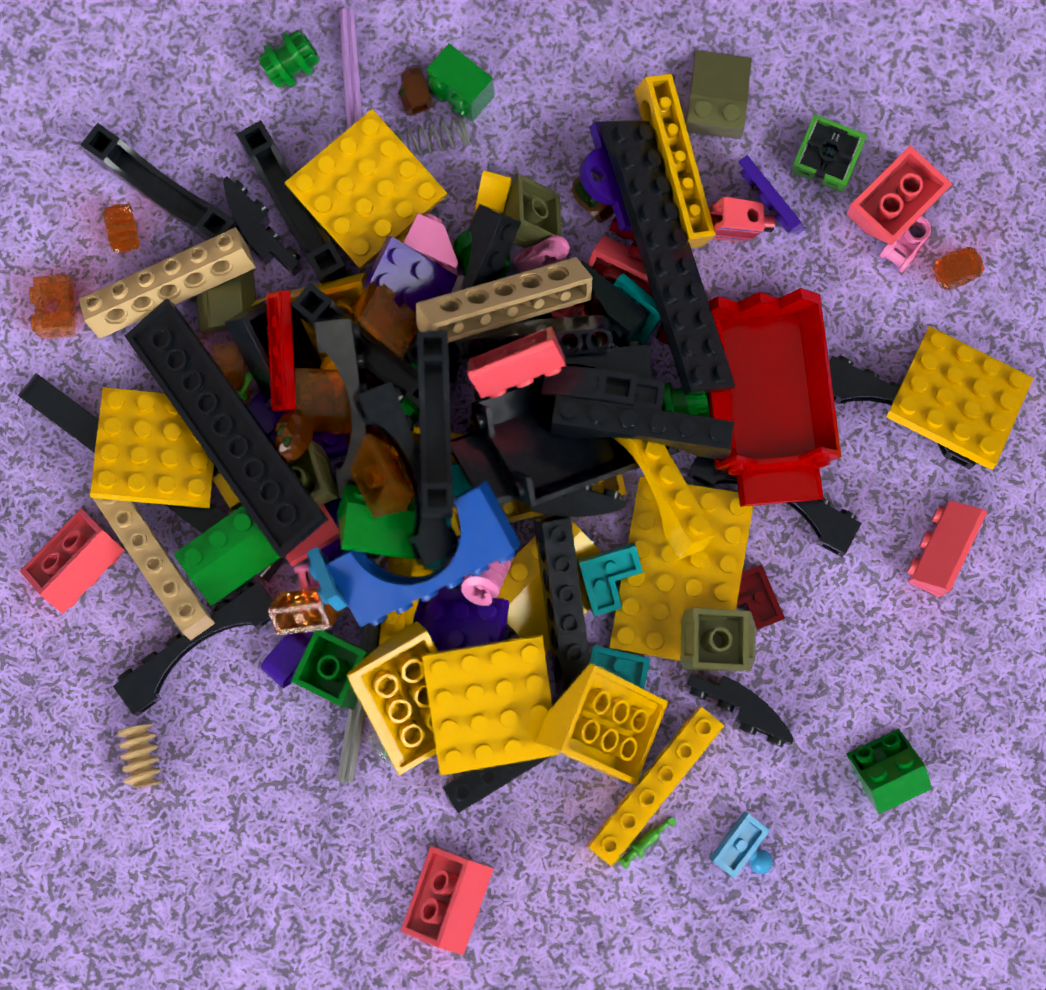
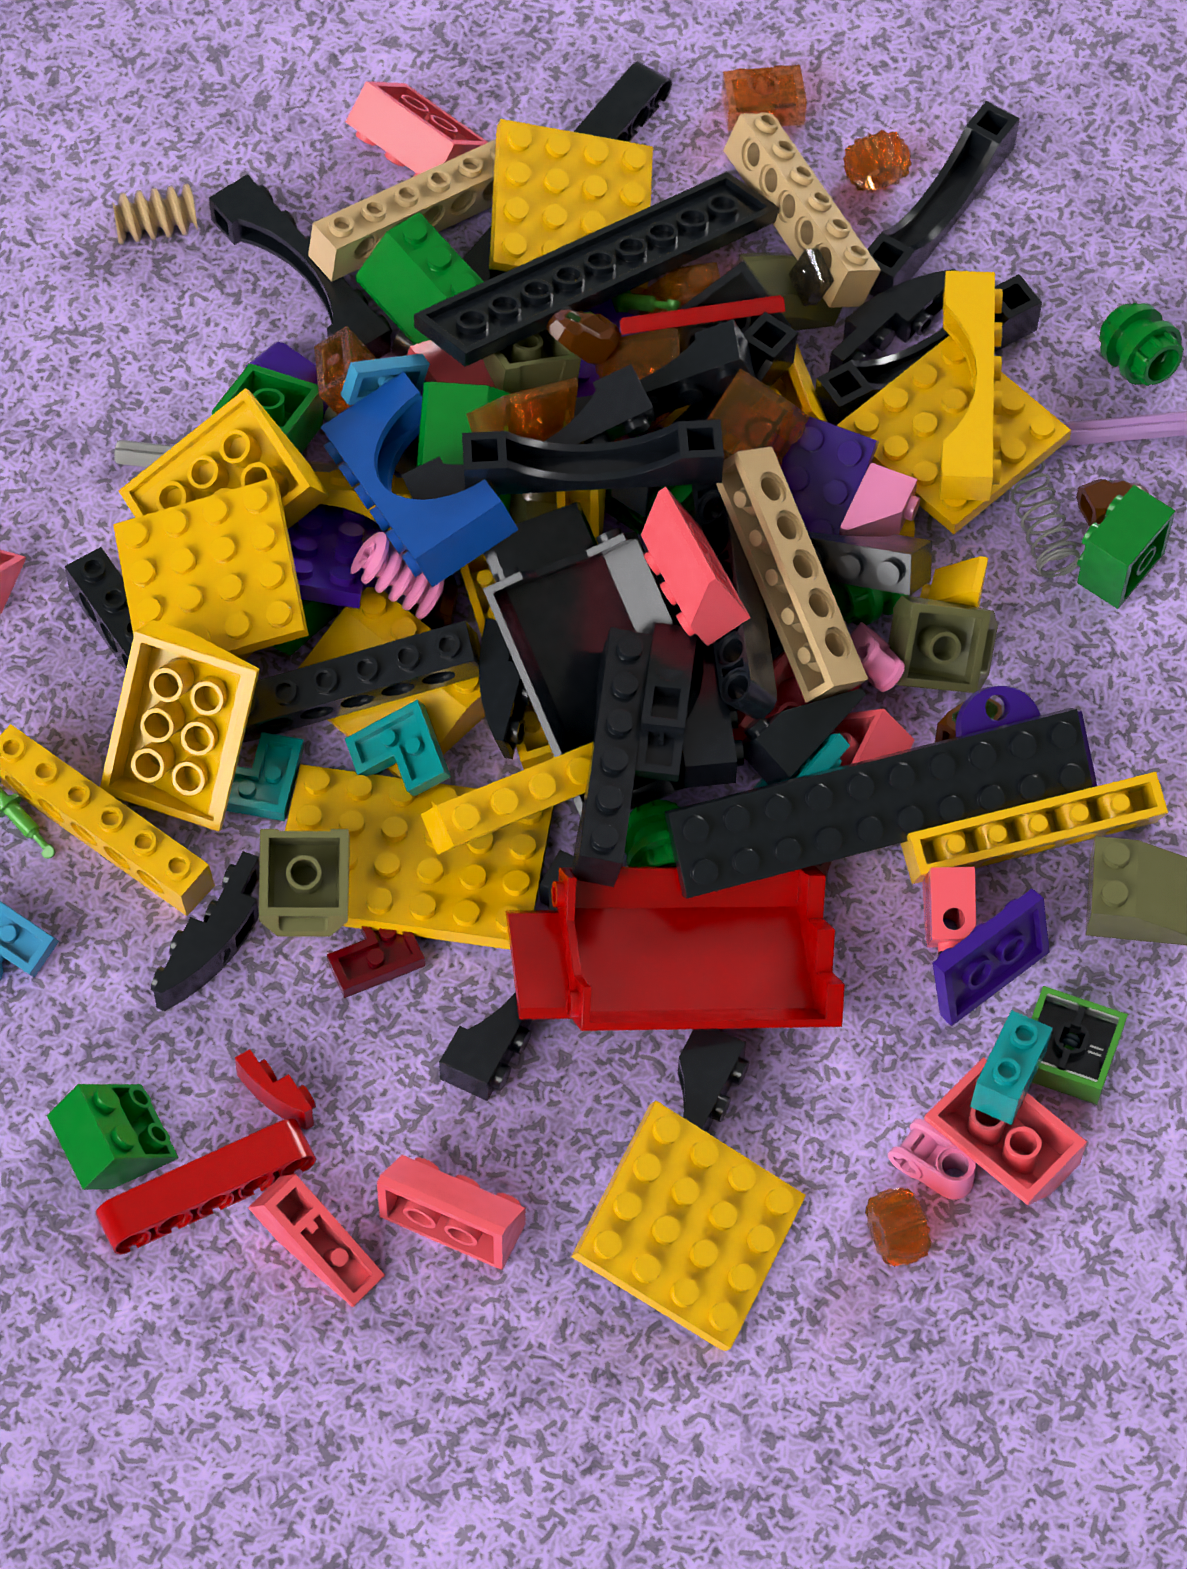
camera: 85 degrees right, 20 degrees down
(232, 278) = (811, 277): none -> clear smoke plate
(282, 166) = (967, 452): none -> yellow arch
(864, 654) = (279, 1095): none -> red slope
(869, 184) = (1011, 1067): none -> teal brick
(926, 708) = (204, 1184): none -> red beam
(961, 637) = (316, 1238): none -> coral slope

